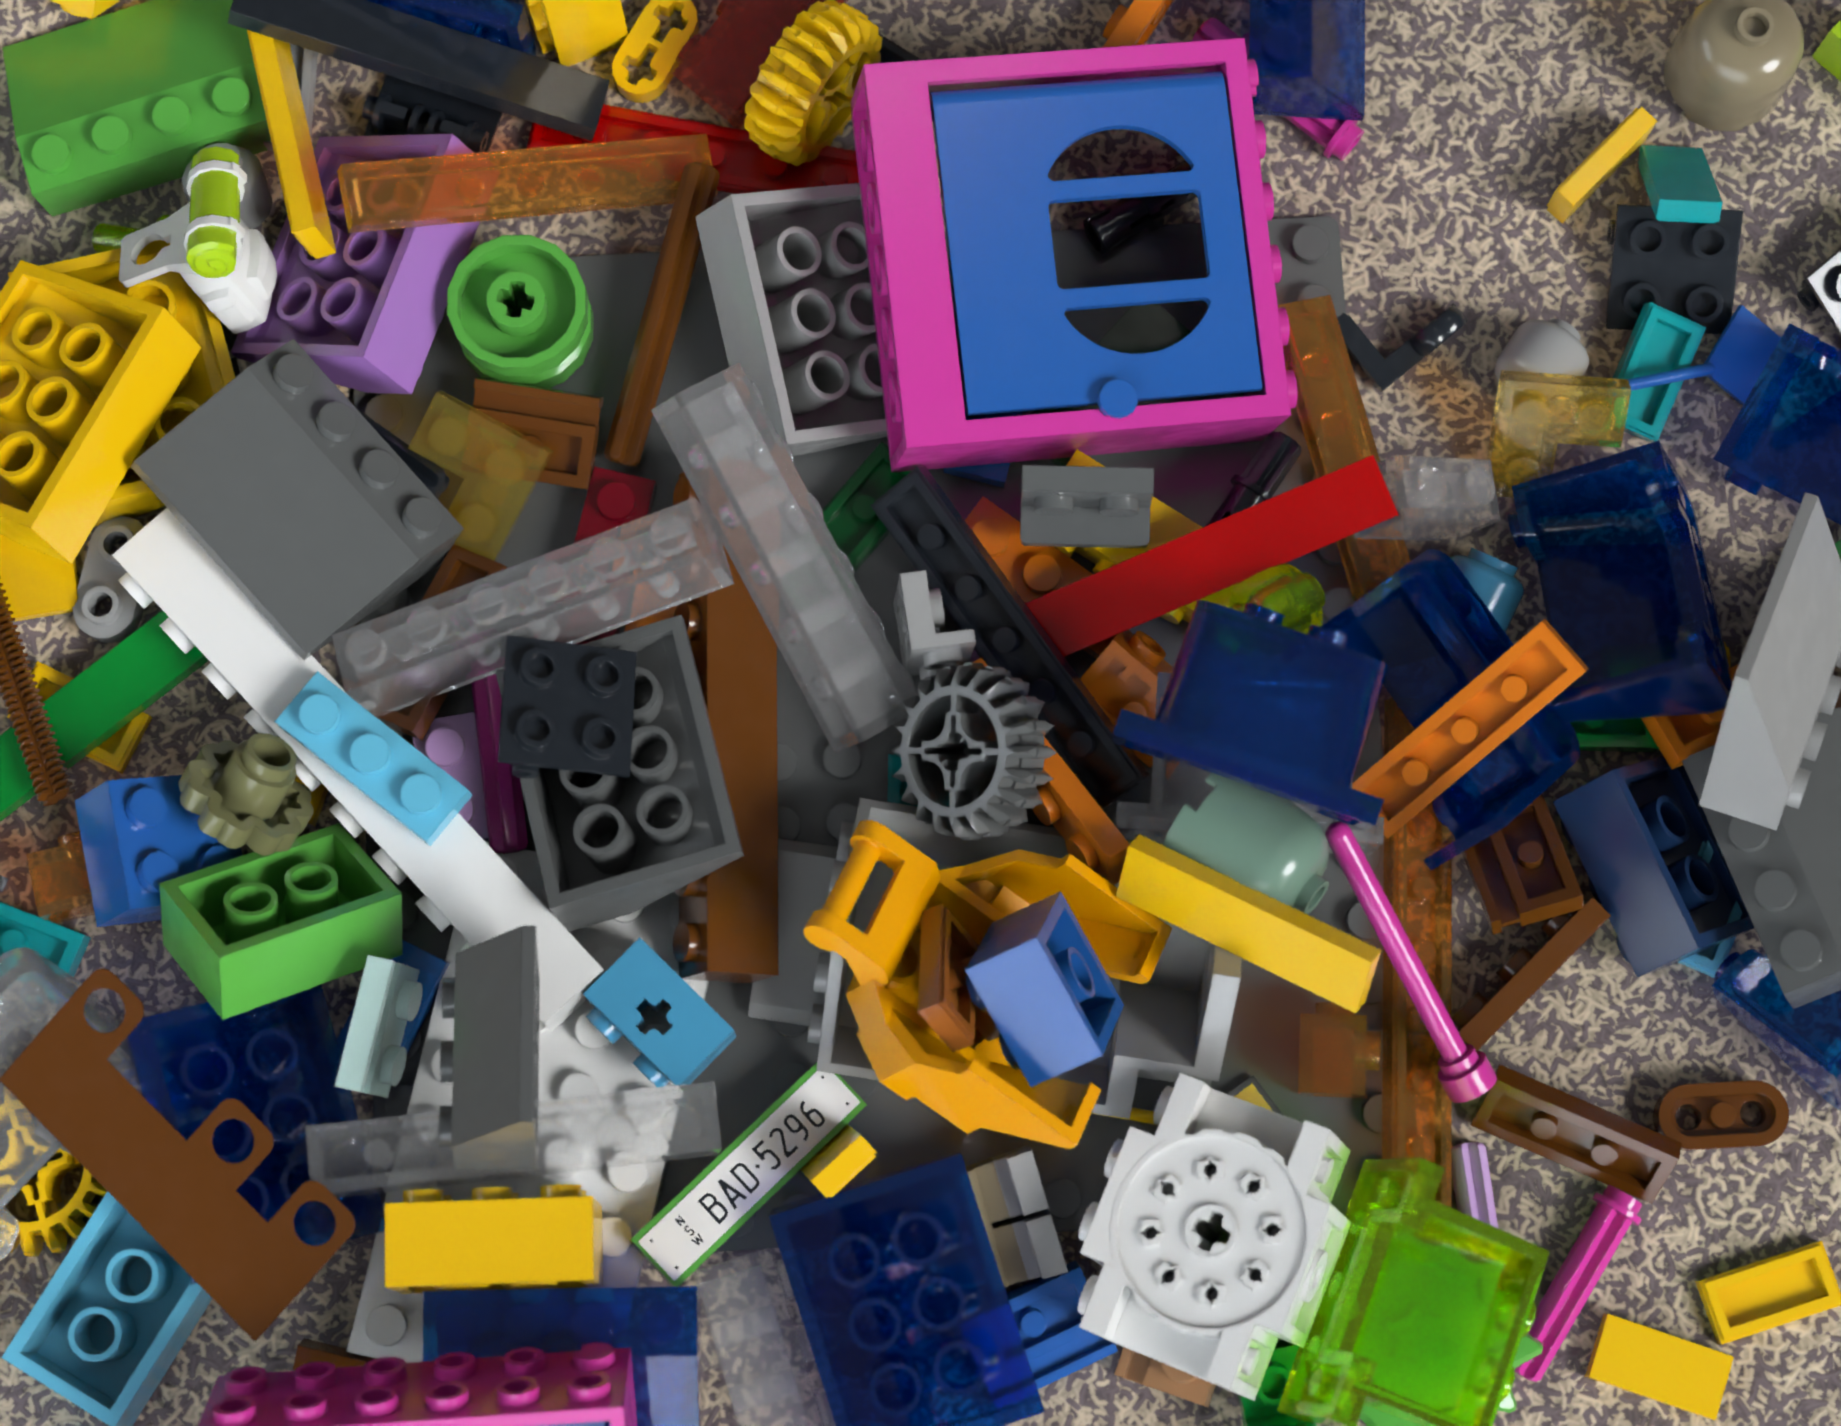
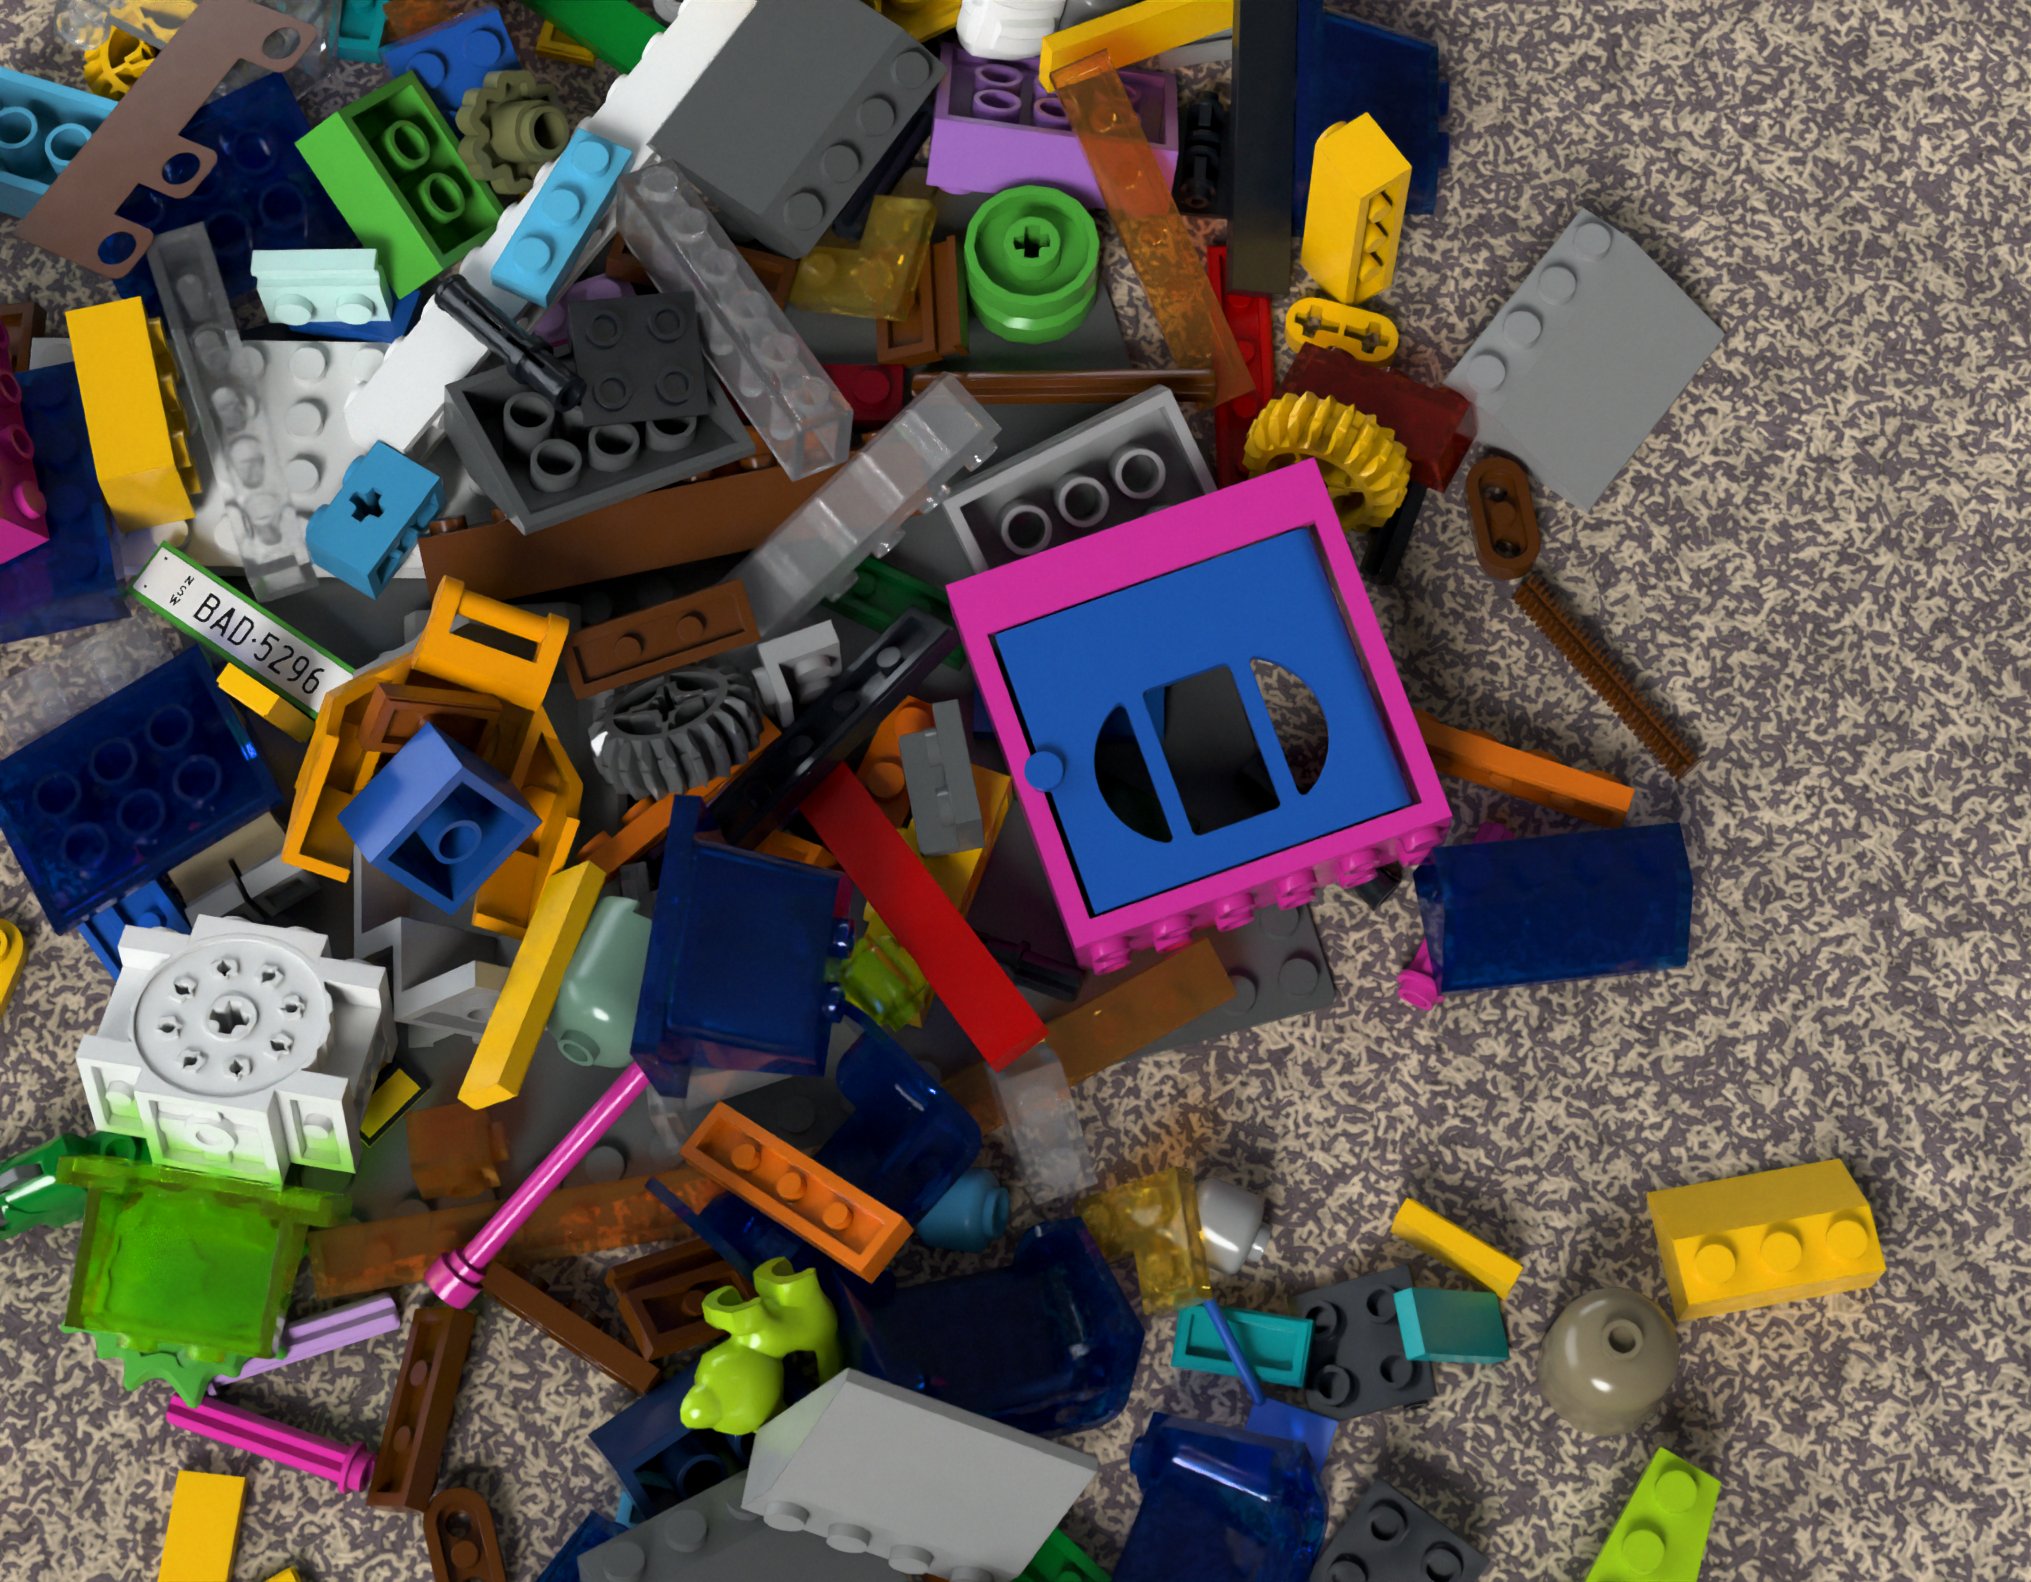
camera: 80 degrees right, 10 degrees down
(455, 875) = (527, 356): none -> black pin
(493, 1054) = (289, 358): dark grey slope -> none
(875, 740) = (659, 638): none -> reddish brown plate
(1386, 371) = (1215, 1105): black piece -> none
(1641, 804) = (743, 1378): none -> lime animal

